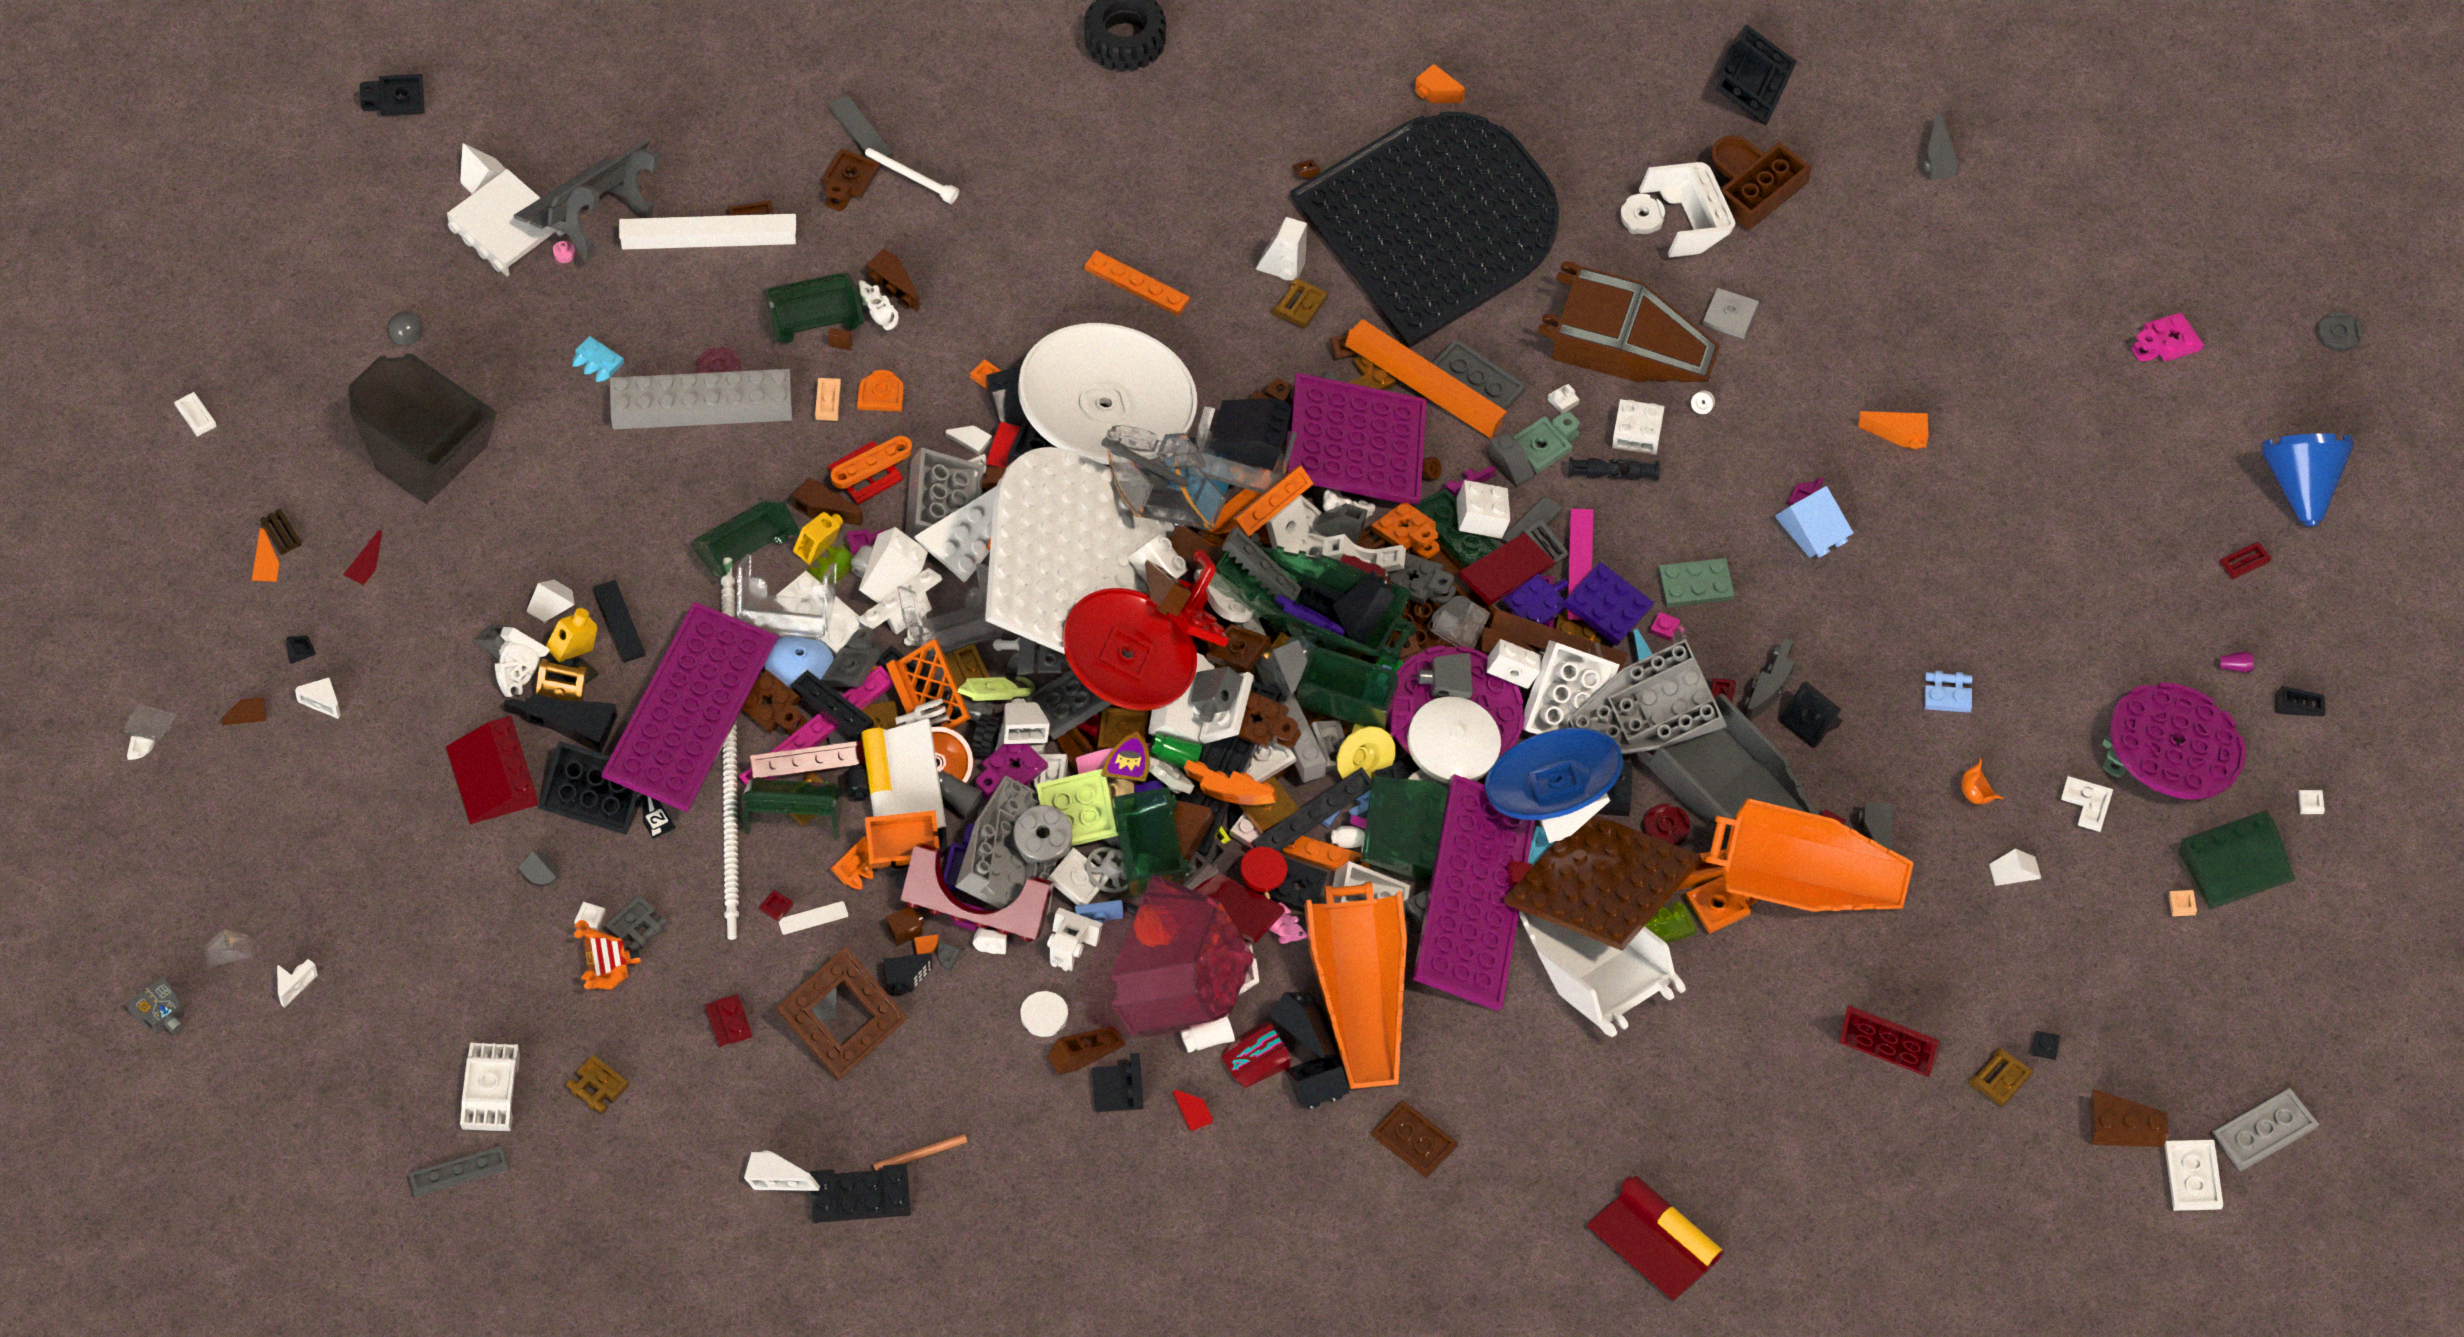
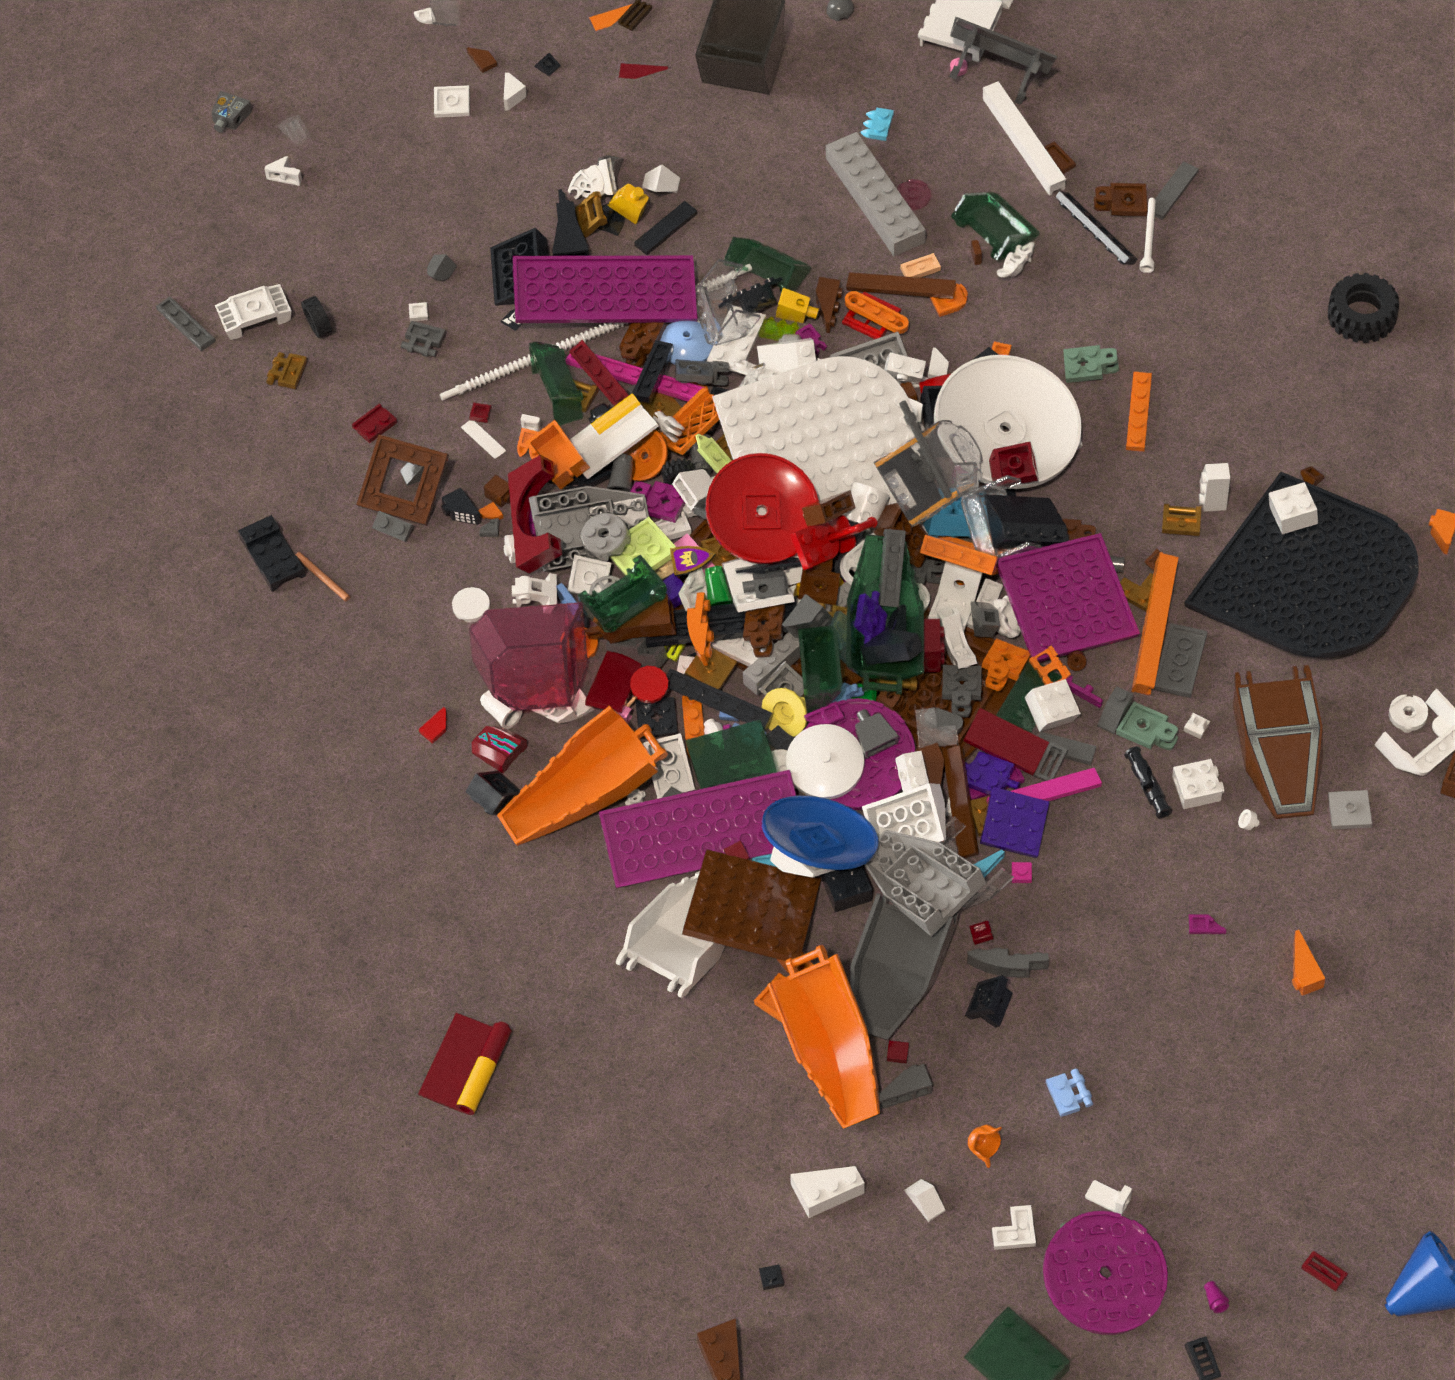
camera: 70 degrees right, 0 degrees up
(291, 767) = (451, 101): none -> white tile
(492, 771) = (505, 210): dark red slope -> none
(546, 1019) = (316, 316): none -> black tyre
(605, 958) = (384, 332): torso -> none
(773, 1172) = (261, 495): white slope -> none
(781, 568) = (755, 299): none -> black bracket
(826, 858) = (530, 422): none -> white tile
(843, 426) = (901, 285): none -> reddish brown tile
(881, 217) = (1092, 224): none -> plate
(891, 275) = (1051, 261): reddish brown slope -> none
(892, 1053) = (392, 526): none -> dark grey plate
(970, 464) = (905, 368): none -> white brick
(1054, 290) = (1096, 363): none -> sand green plate
(1082, 1049) = (449, 637): reddish brown slope -> none
(1118, 1086) = (431, 672): black bracket -> none
(1175, 407) = (1014, 461): none -> dark red slope
(1203, 651) = (760, 568): none -> black piece
(1306, 1022) = (529, 758): black slope -> none
(1354, 195) = (1293, 508): none -> white brick
(1414, 1139) = (478, 875): reddish brown tile -> none
(1434, 485) = (1054, 665): none -> orange piece
(1666, 830) = (838, 939): dark red tile -> none
(1670, 926) = (744, 972): clear neon green plate -> none
(1696, 582) = (1075, 879): sand green plate -> none
(1816, 523) = (1173, 938): light blue slope -> none
(1889, 1041) = (714, 1157): dark red slope -> none
(1970, 952) = (826, 1188): none -> white wedge
(2006, 1082) = (722, 1259): pearl gold plate -> none
(2089, 704) = (1108, 1197): none -> white bracket
(2182, 903) = (955, 1332): light nougat plate -> none

